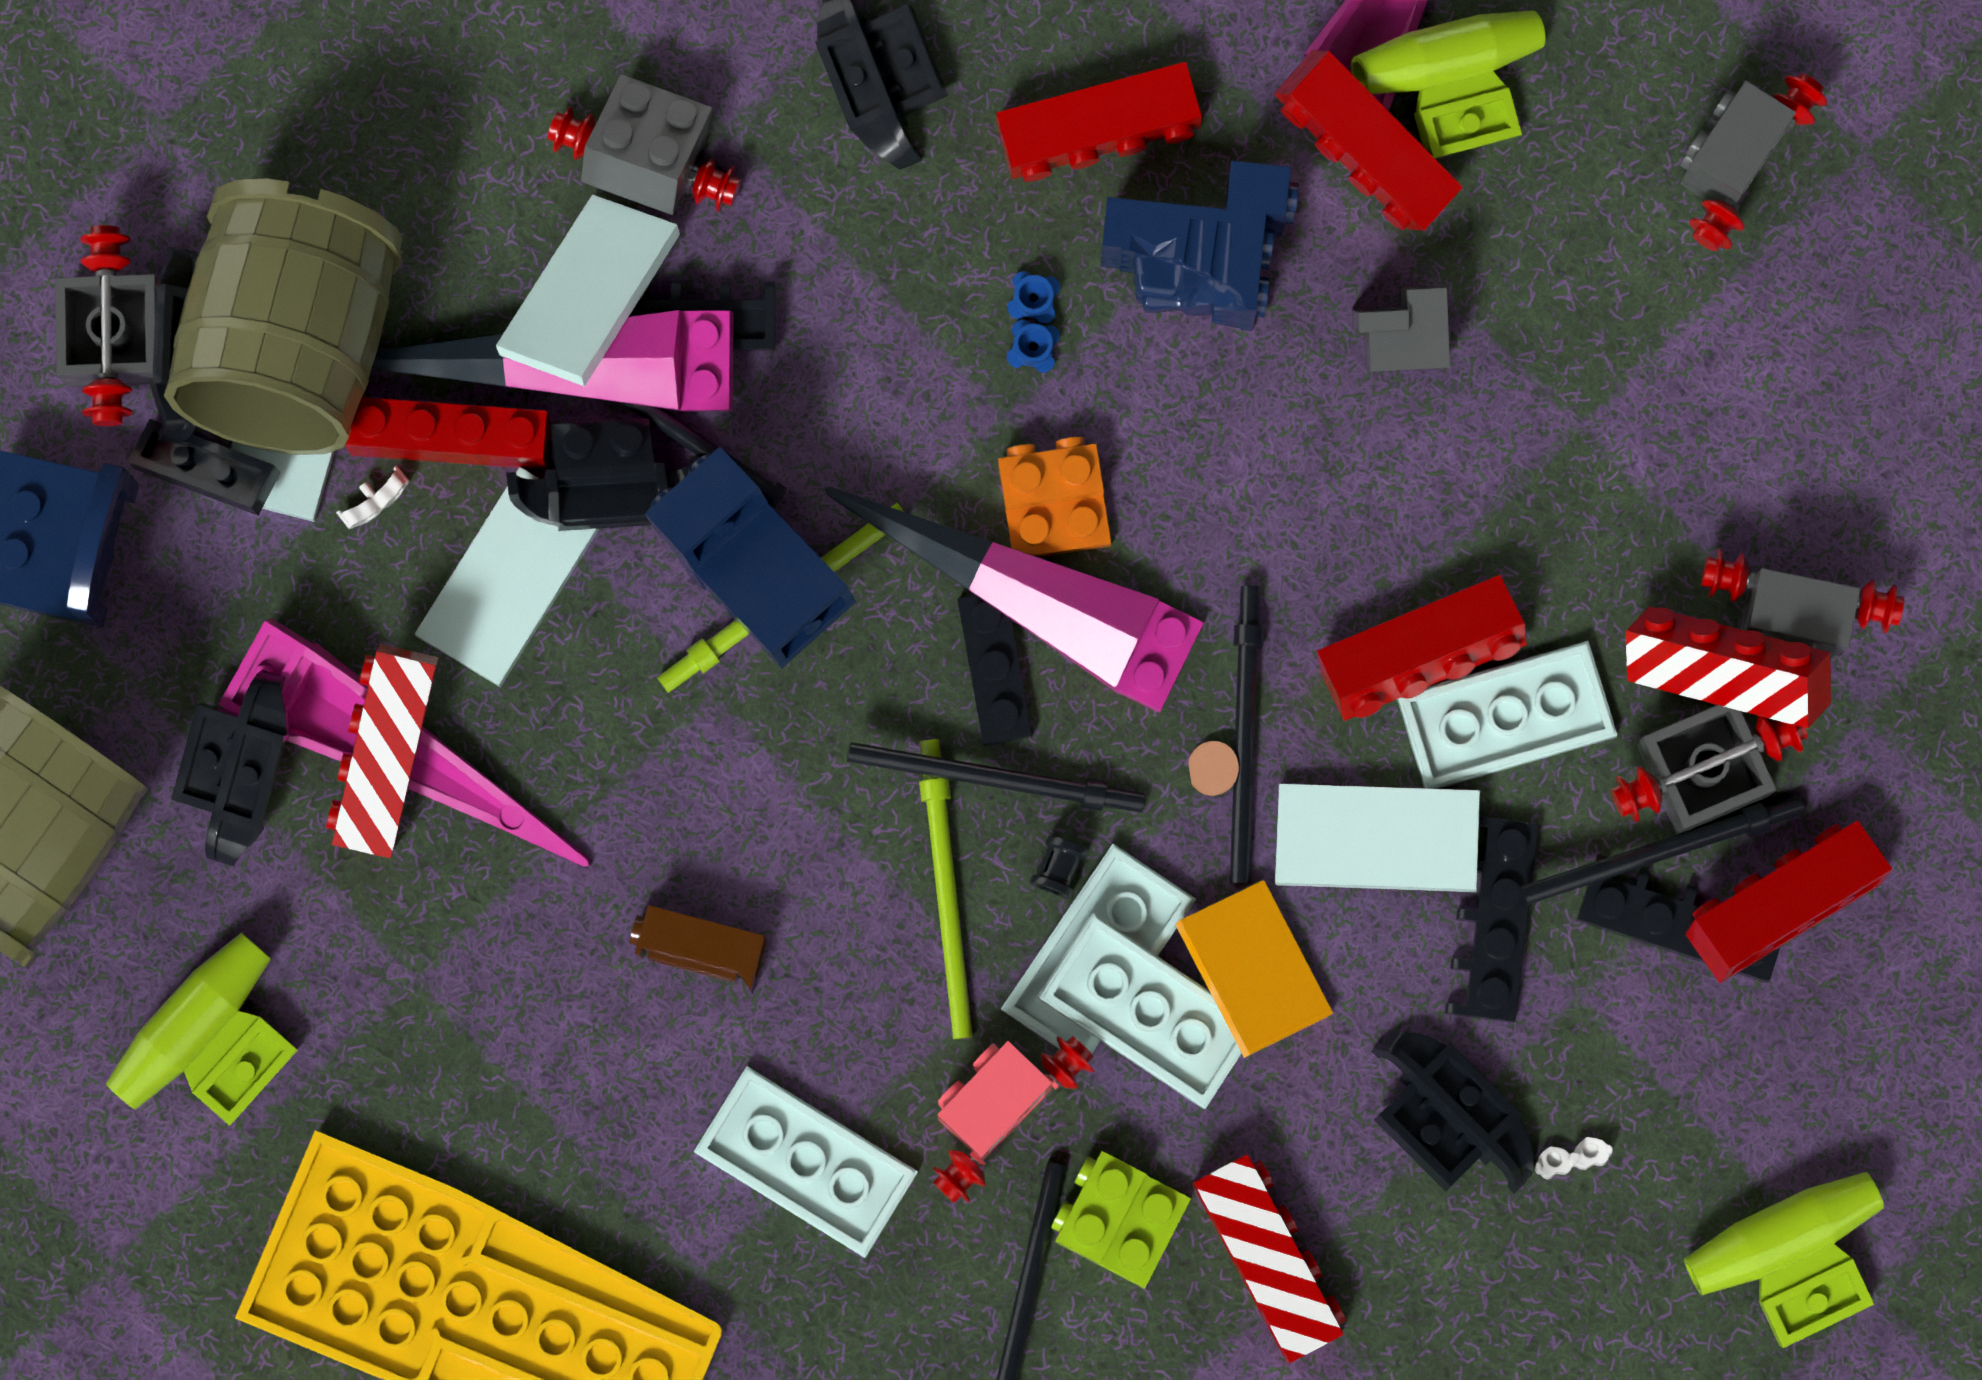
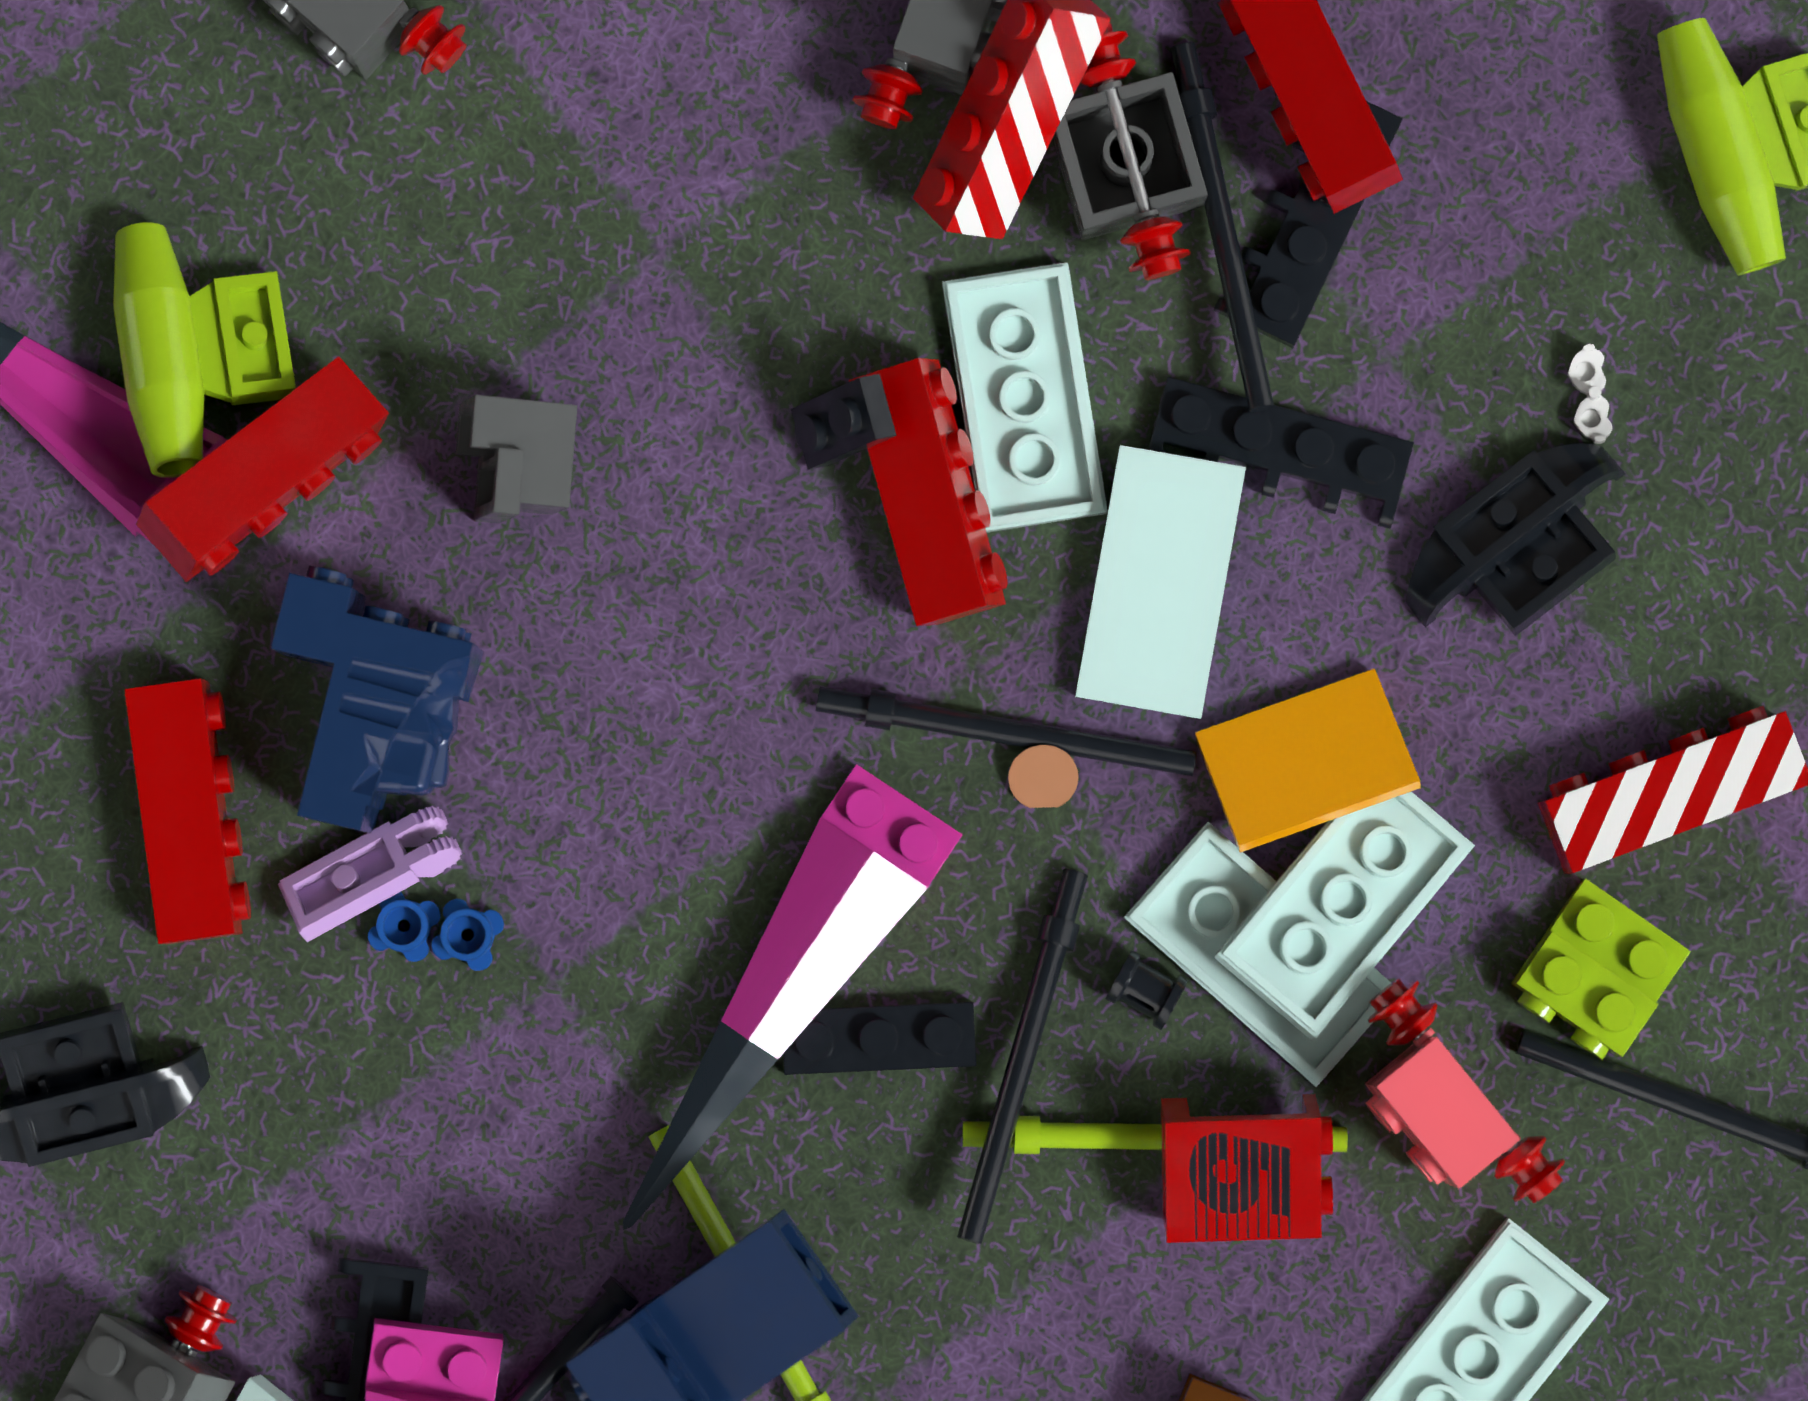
camera: 85 degrees left, 5 degrees up
(926, 957) = (1244, 1174): none -> red panel
(1054, 498) = (671, 933): orange plate -> none
(1071, 264) = (368, 871): none -> lavender hinge
(1466, 574) = (843, 422): none -> black plate

